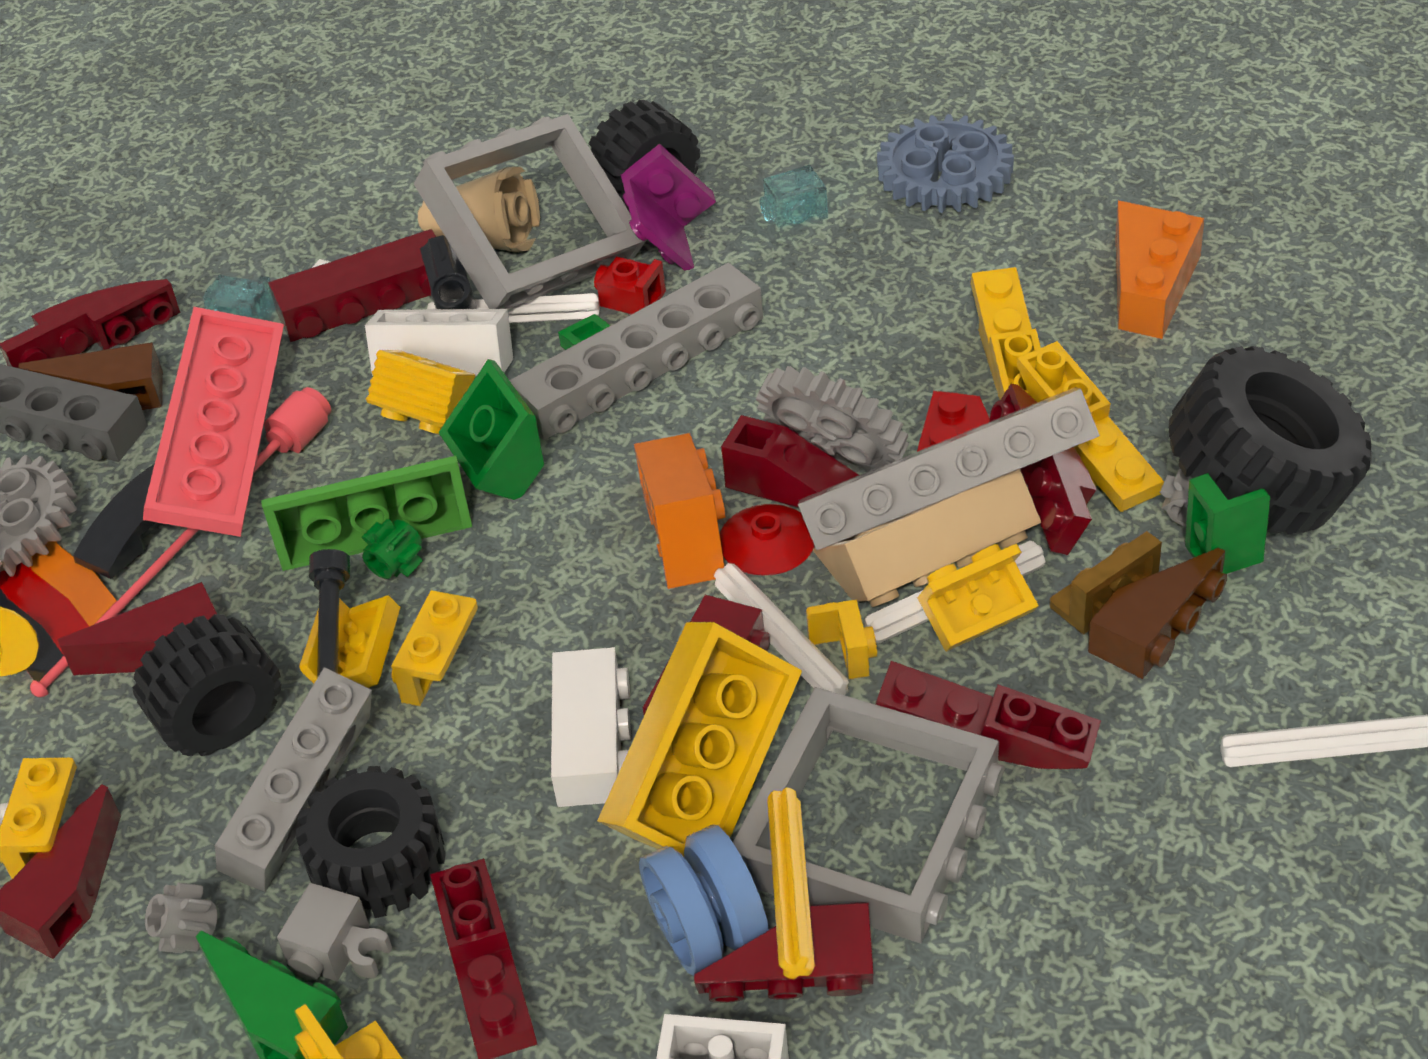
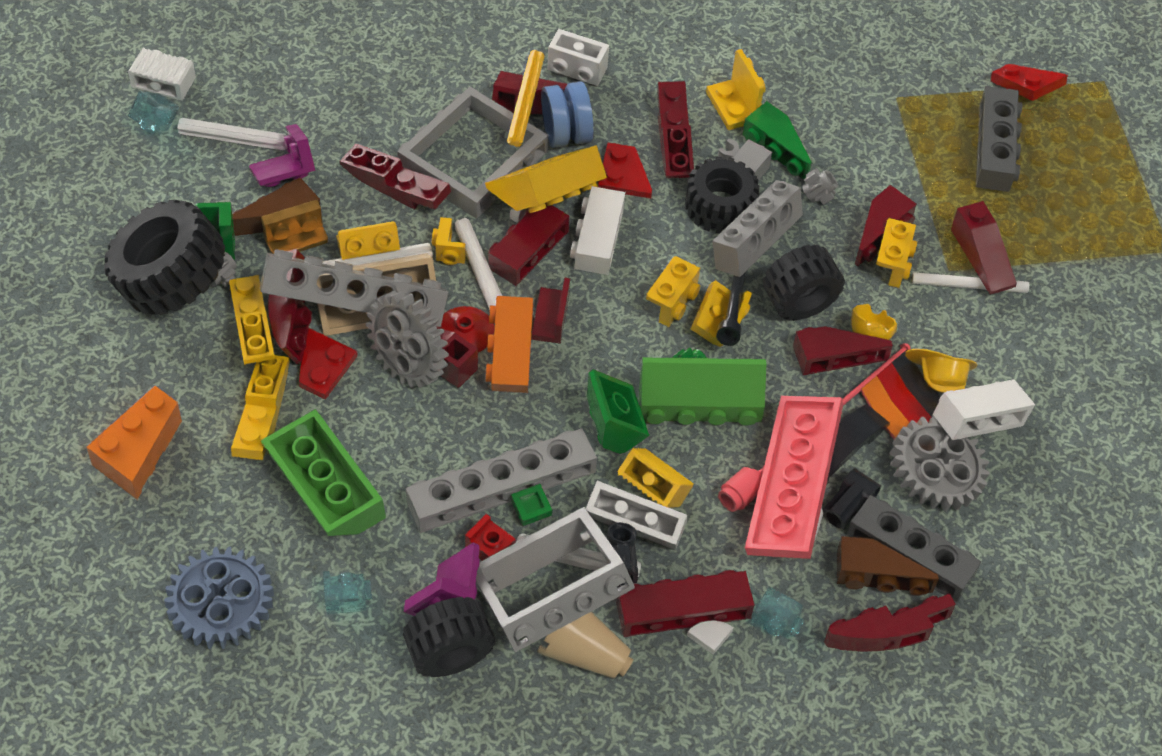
camera: 175 degrees left, 10 degrees up
(88, 684) = (872, 324): none -> yellow hair
(134, 453) = (850, 498): none -> black piece
(572, 869) = (625, 171): none -> red wing
(634, 584) = (551, 313): none -> dark red panel
(876, 281) = (325, 476): none -> bright green slope
(1194, 678) = (293, 165): none -> magenta bracket

